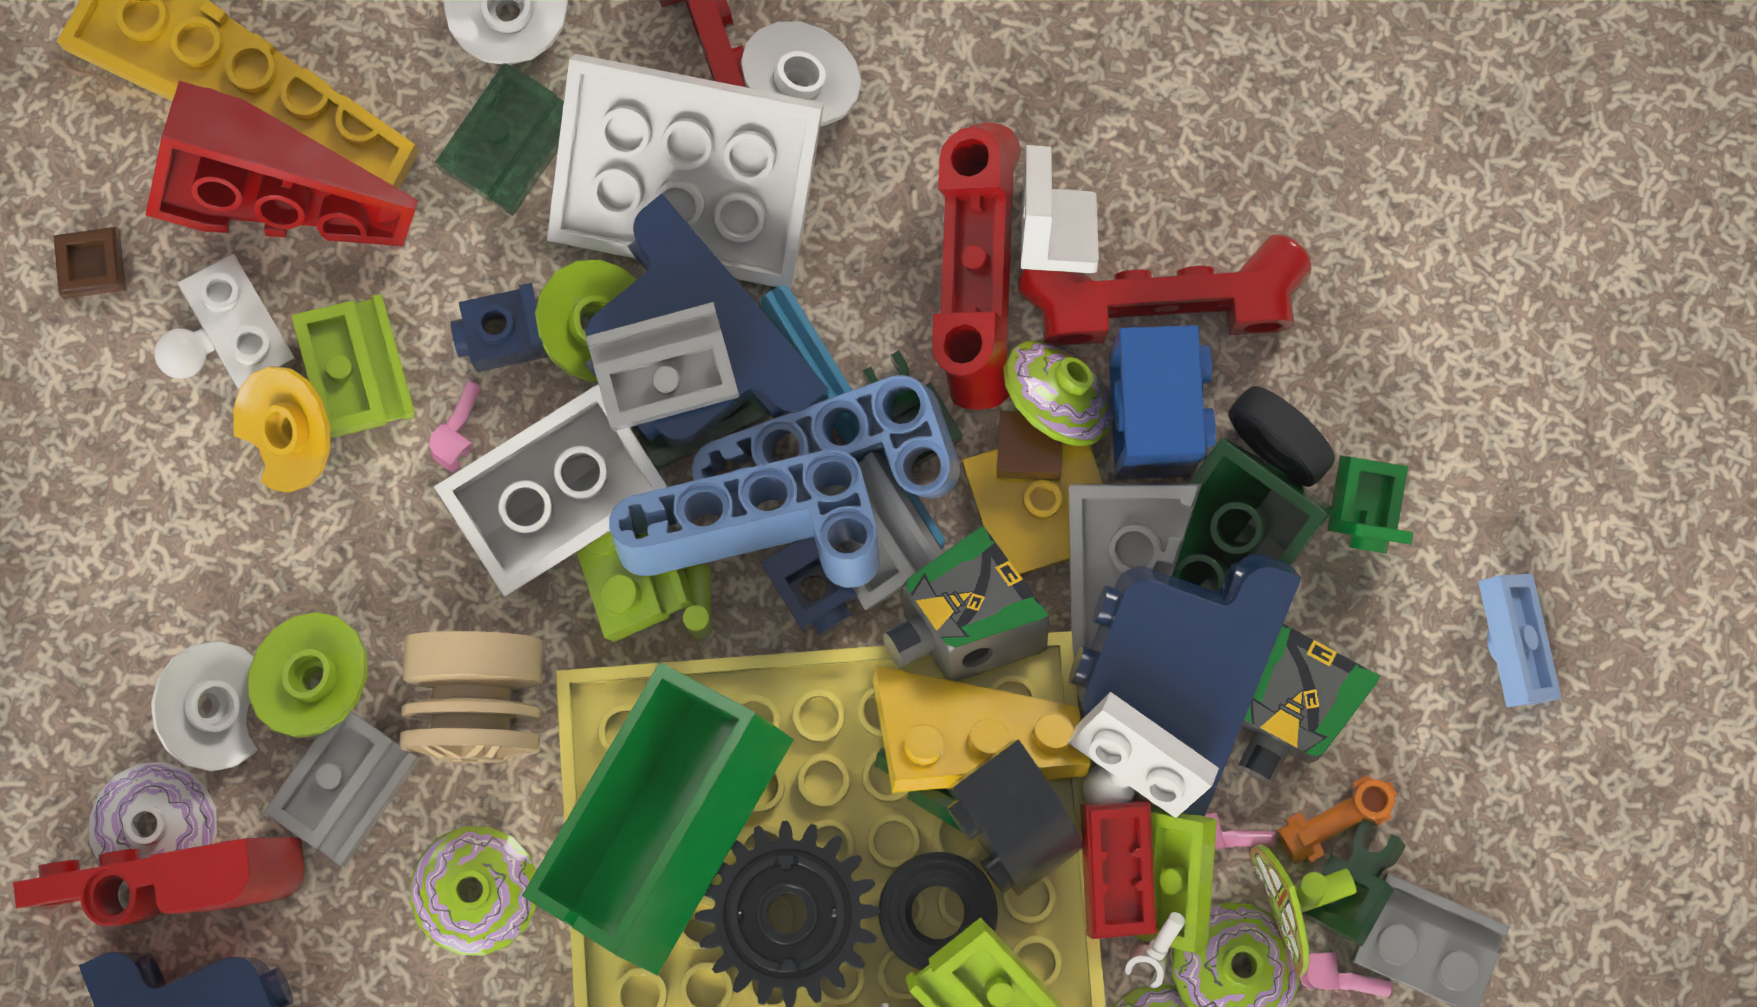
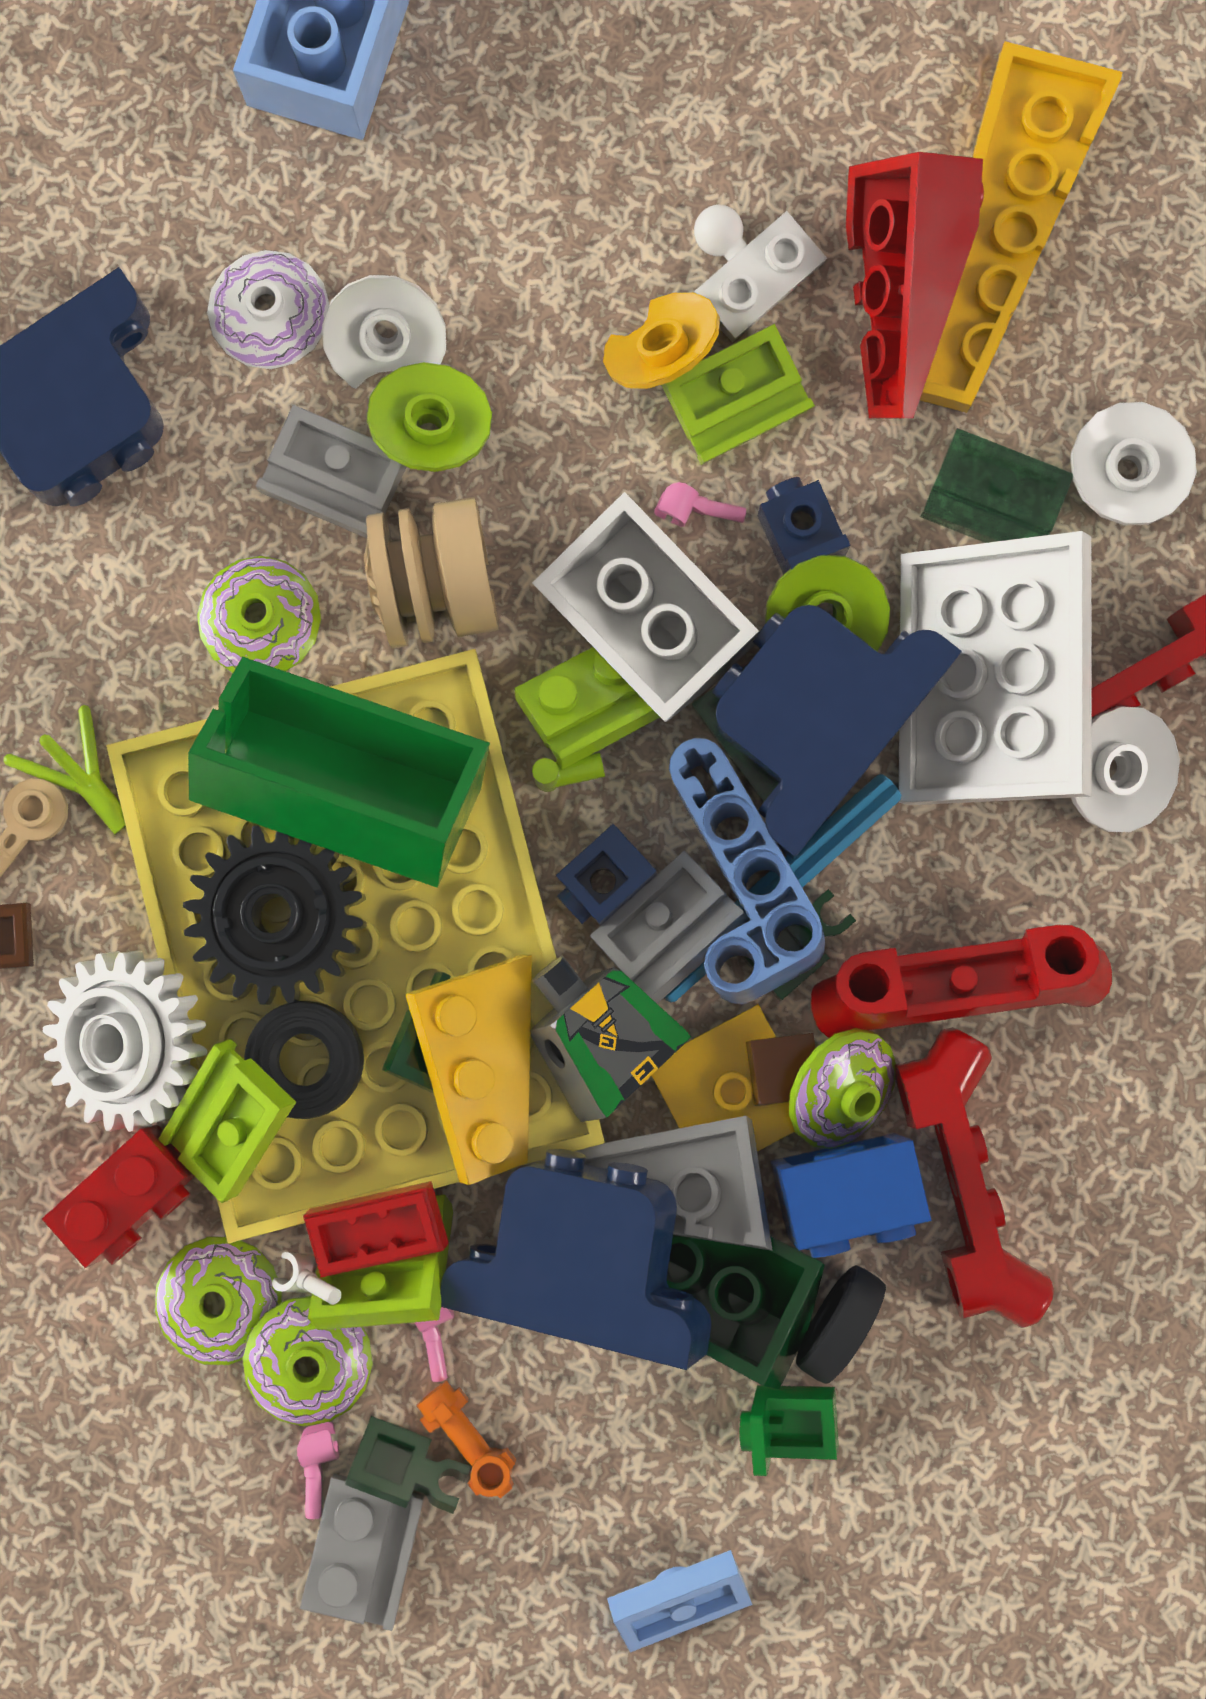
camera: 85 degrees right, 5 degrees up
(89, 262) = (792, 126): reddish brown tile -> none
(171, 882) = (207, 335): red plate -> none
(662, 366) = (782, 686): light grey plate -> none
(748, 529) = (639, 798): medium blue beam -> none
(1015, 819) = (400, 1114): black brick -> none
(1056, 224) = (1020, 1056): white panel -> none
(1140, 757) = (483, 1230): white plate -> none
(1290, 902) = (377, 1415): lime shield -> none
(1301, 703) = (573, 1389): torso -> none

